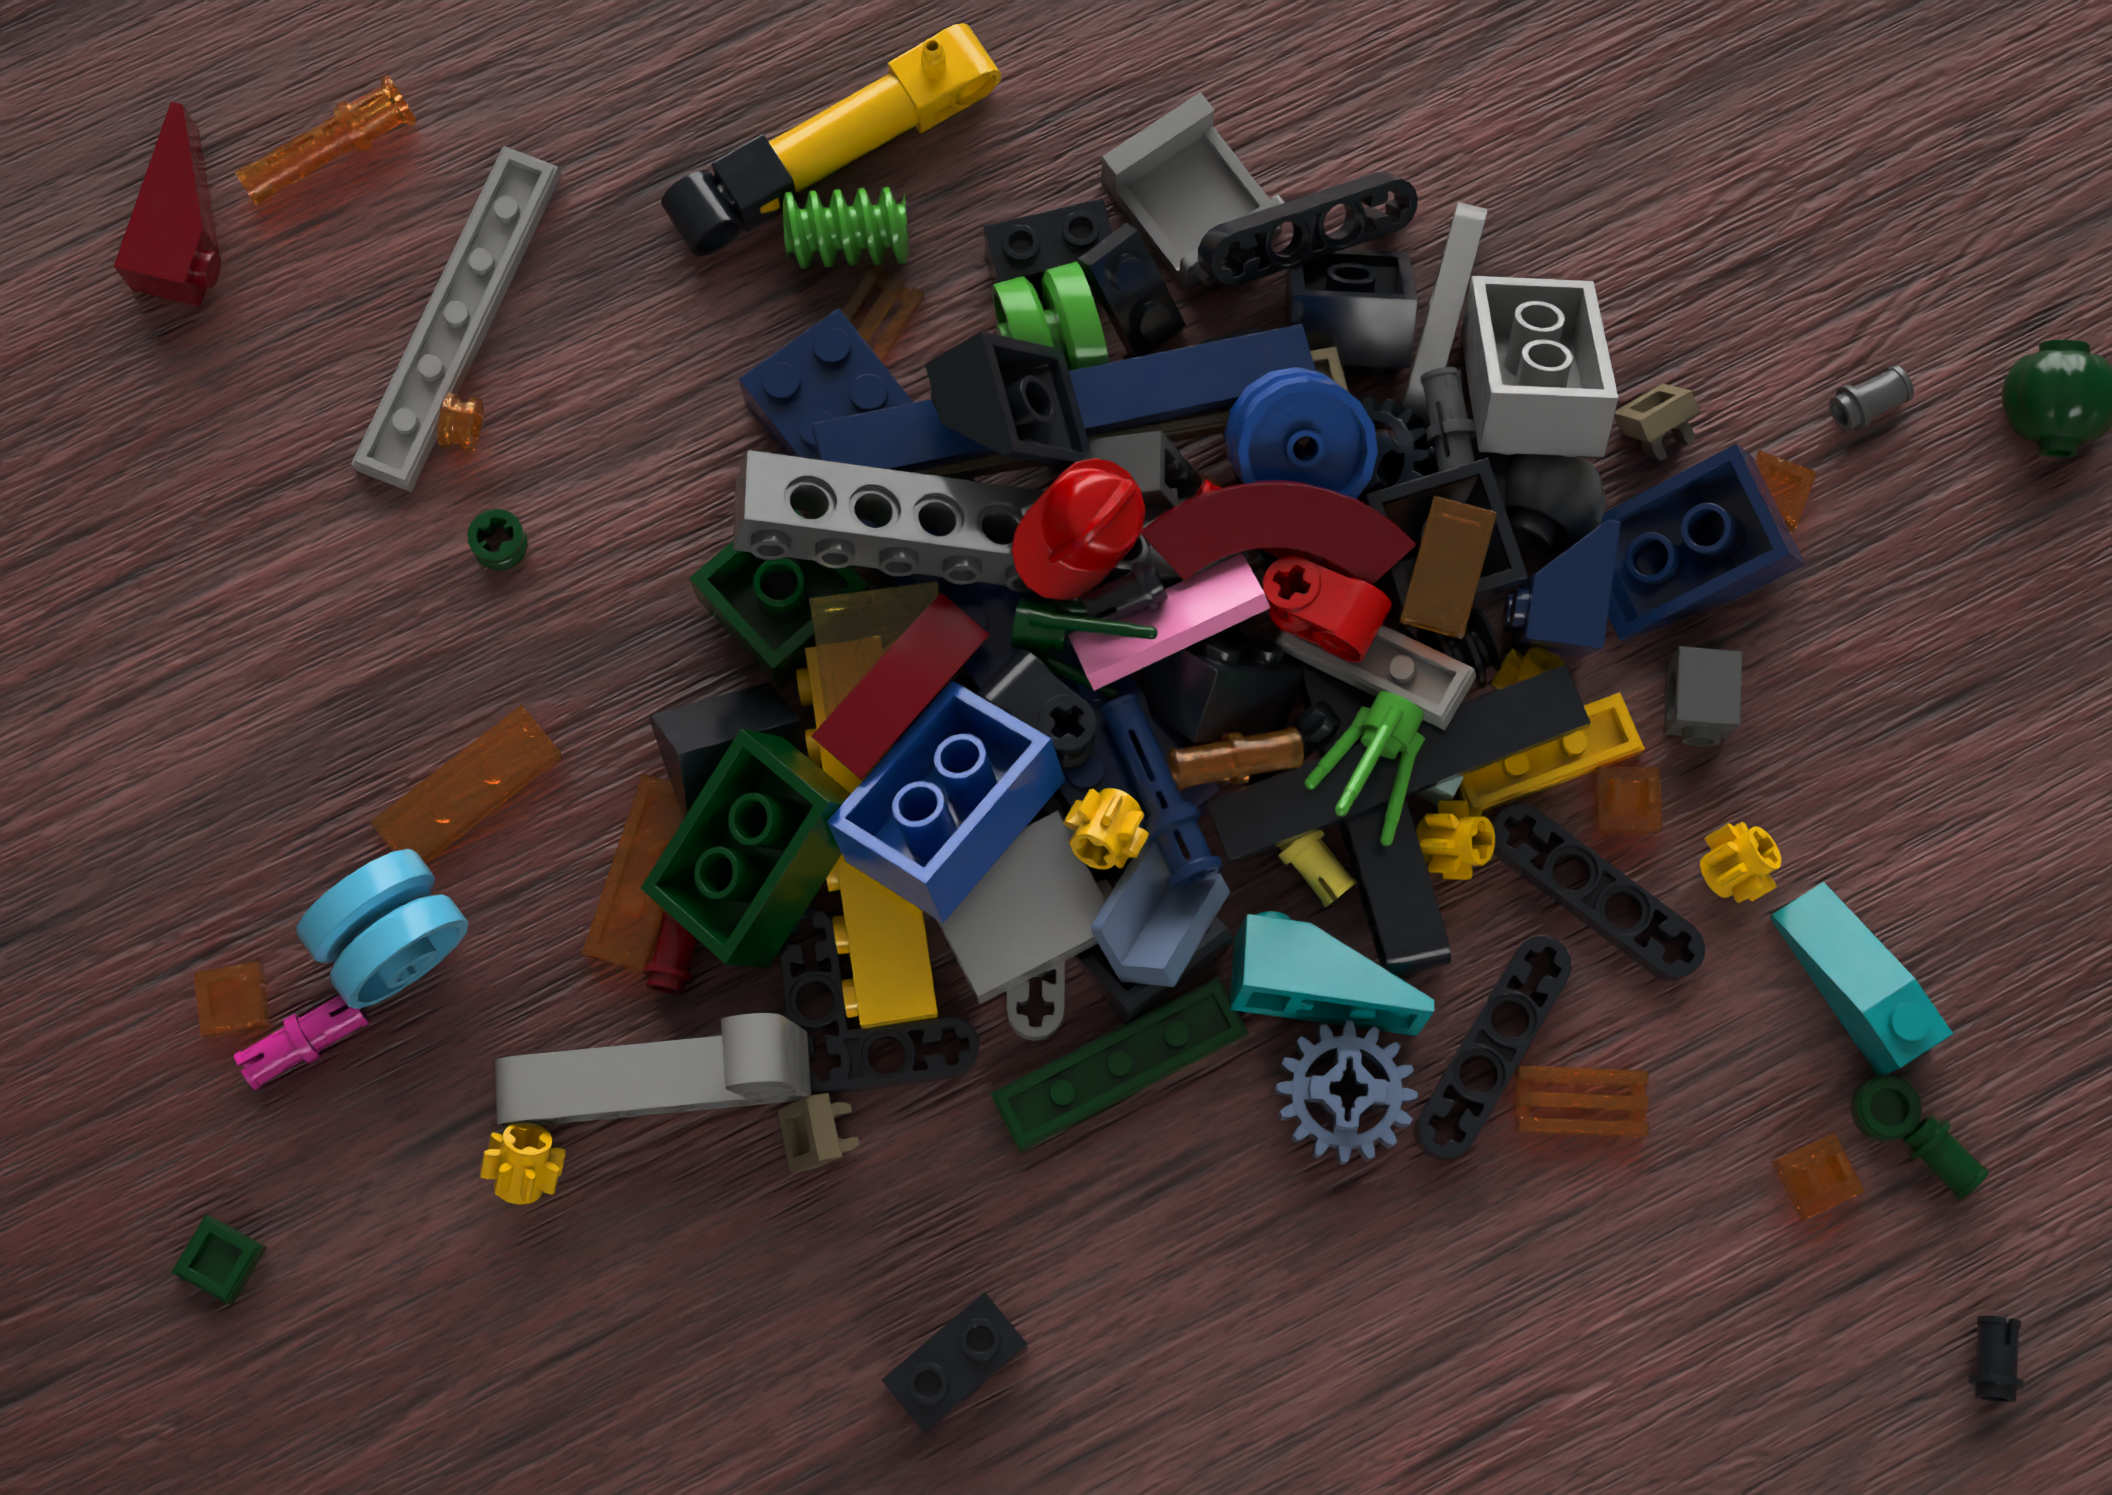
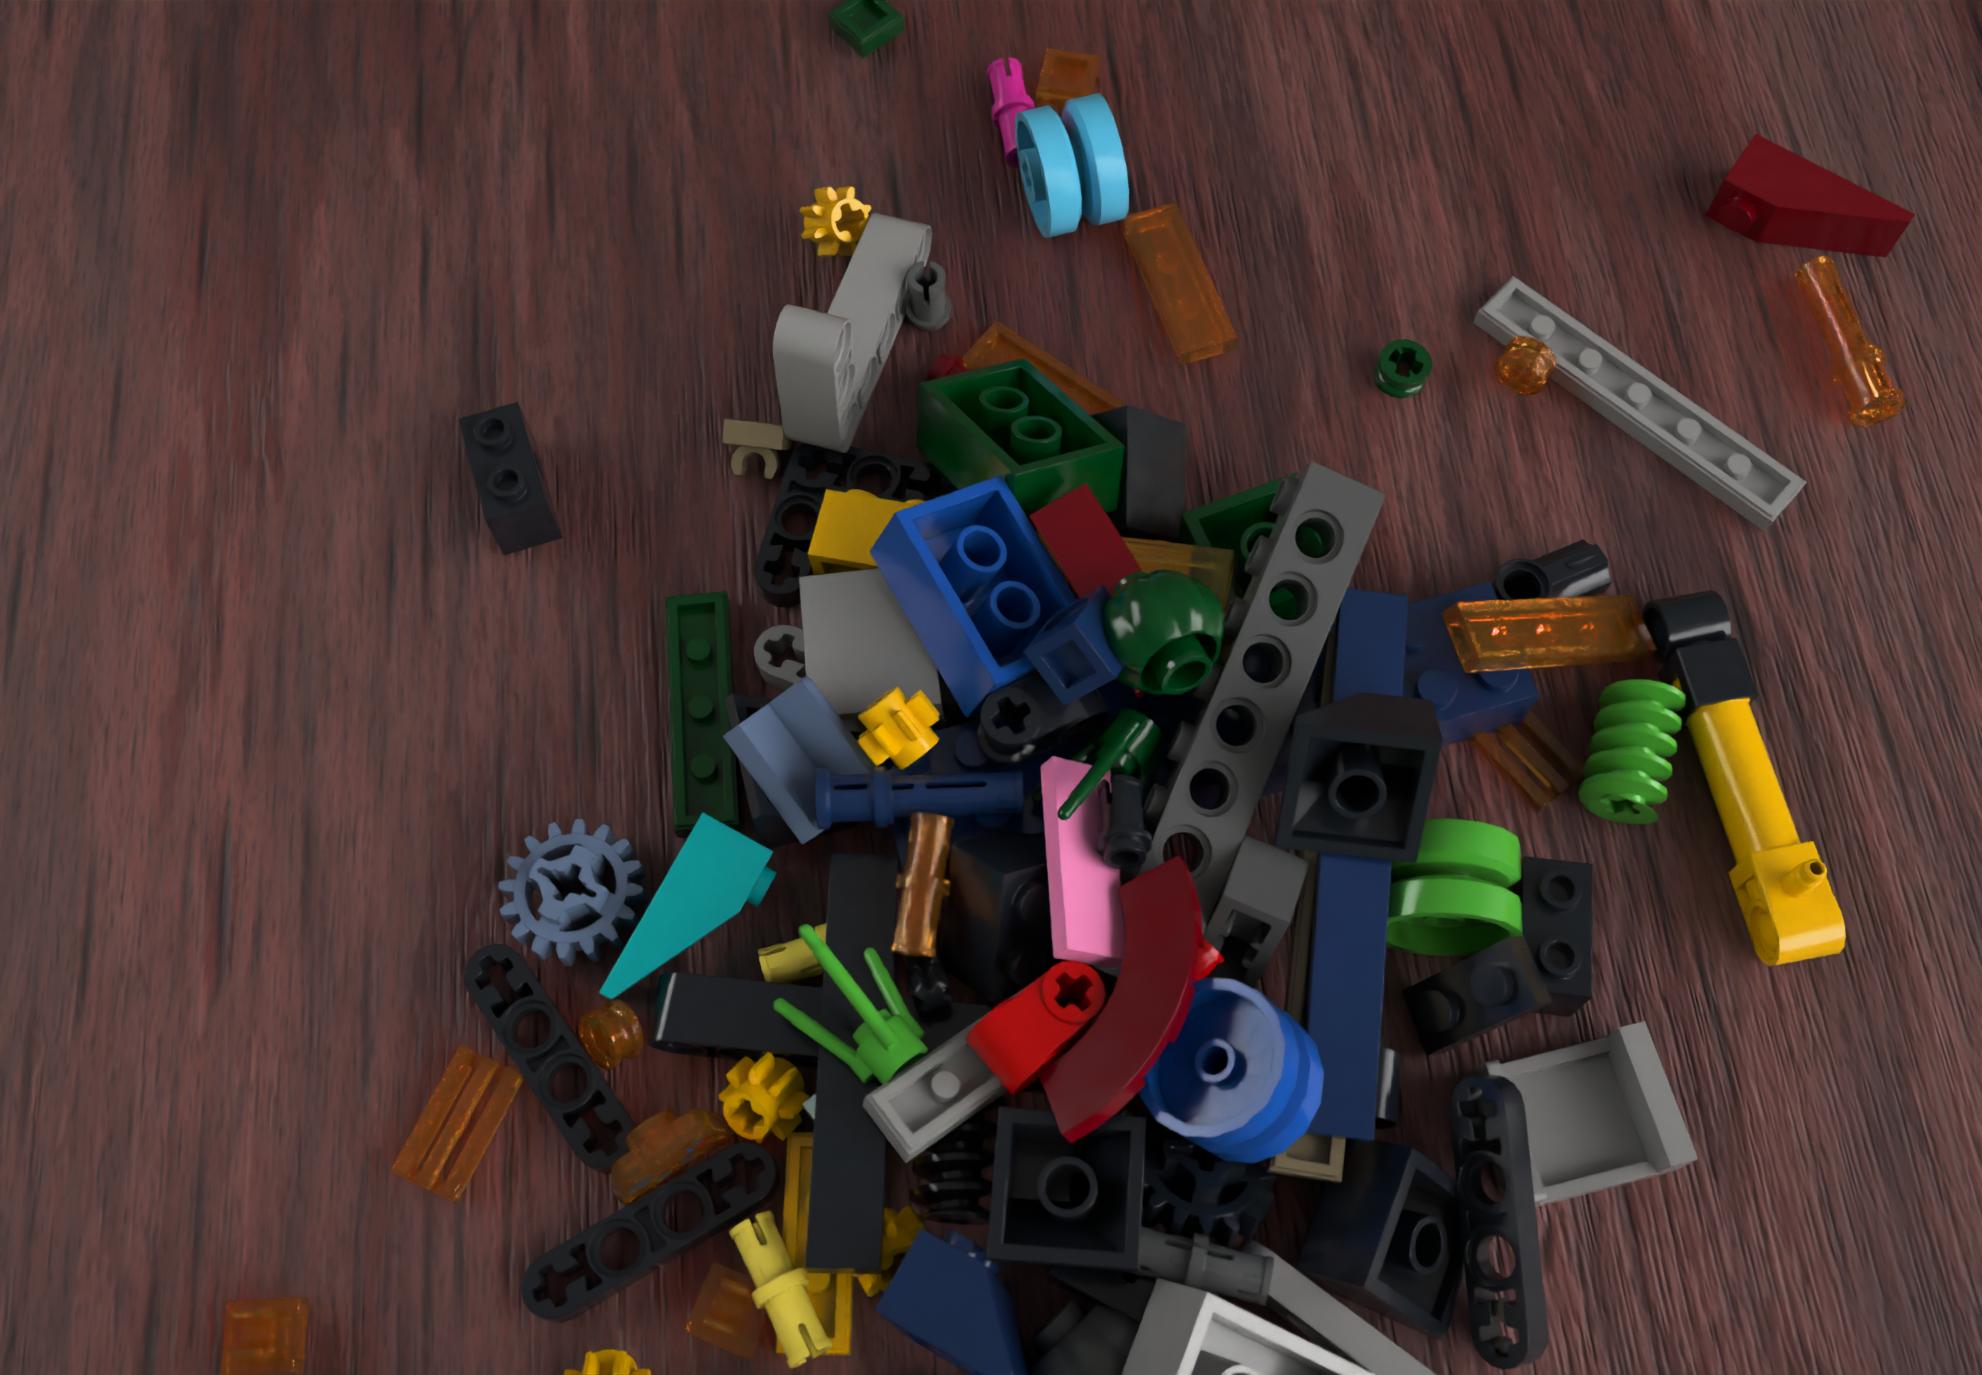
camera: 115 degrees right, 10 degrees down
(575, 1015) = (928, 304): none -> dark grey pin
(701, 340) = (1567, 572): none -> black piece
(772, 315) = (1547, 632): none -> clear orange tile
(949, 609) = (1163, 631): none -> dark green plant
(988, 670) = (1074, 649): none -> dark blue brick
(1078, 529) = (1208, 799): red piece -> none
(1448, 567) = (1028, 1167): clear orange tile -> none
(1457, 996) = (611, 1034): none -> clear orange bush
(1534, 900) = (663, 1147): none -> clear orange piece
(1601, 757) = (780, 1289): none -> light yellow pin

